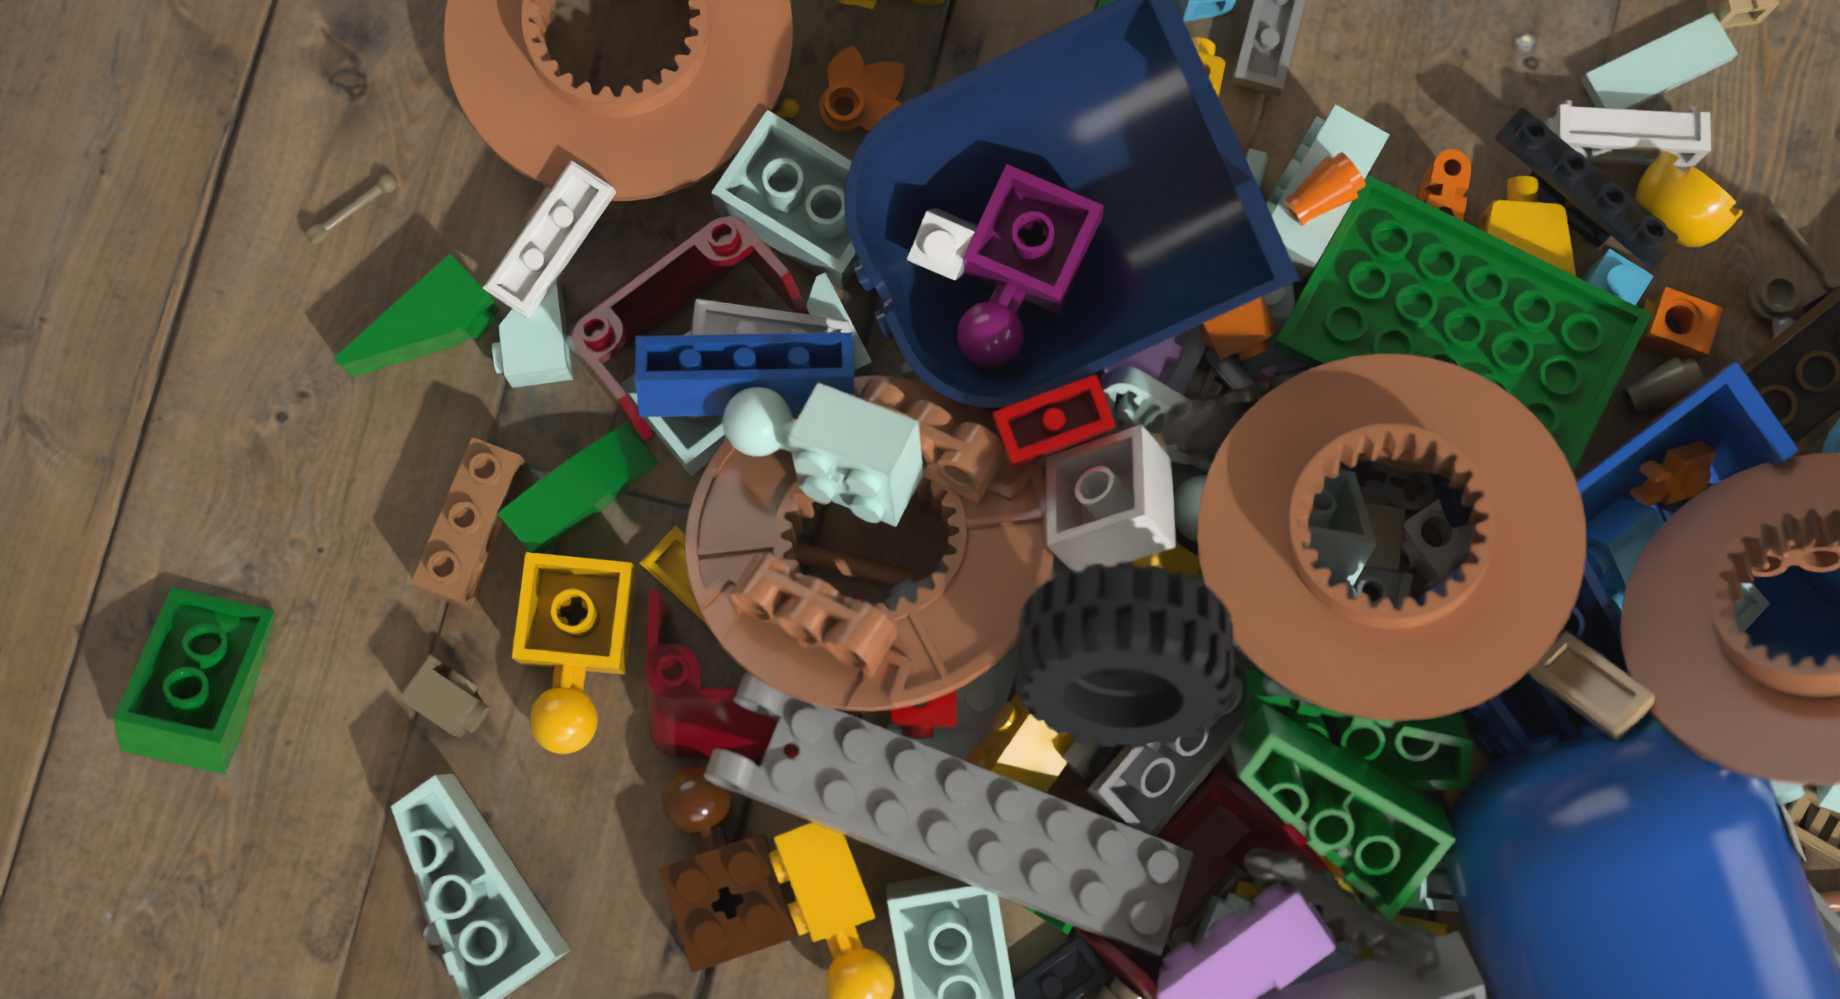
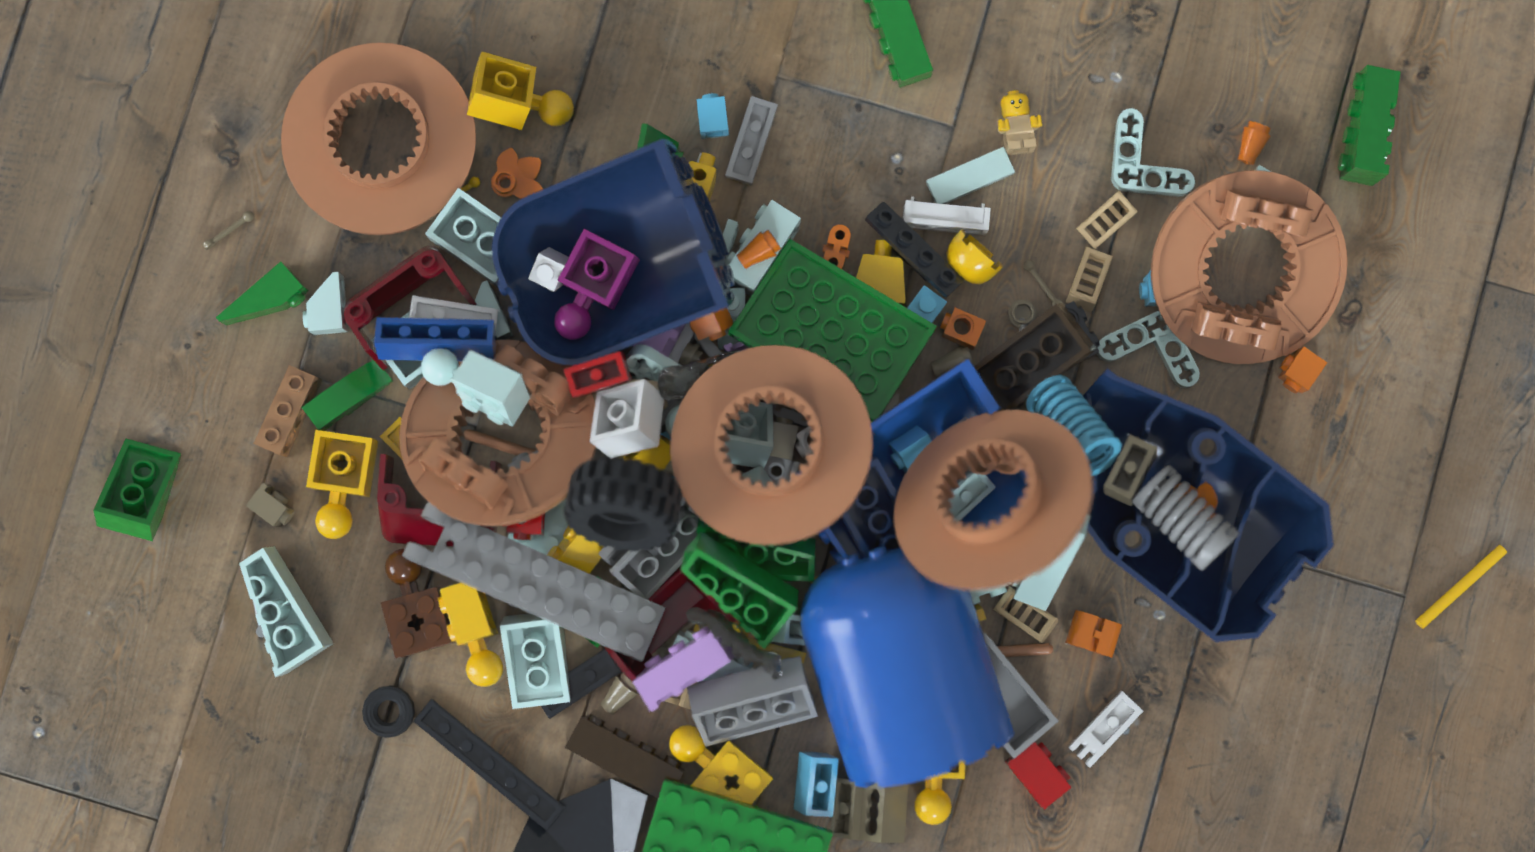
camera: 10 degrees right, 5 degrees up
(549, 239) = (335, 256): white tile -> none
(1592, 686) = (872, 530): tan tile -> none
(1679, 476) = (944, 416): orange plate -> none
(1793, 831) = (986, 612): white sticker -> none

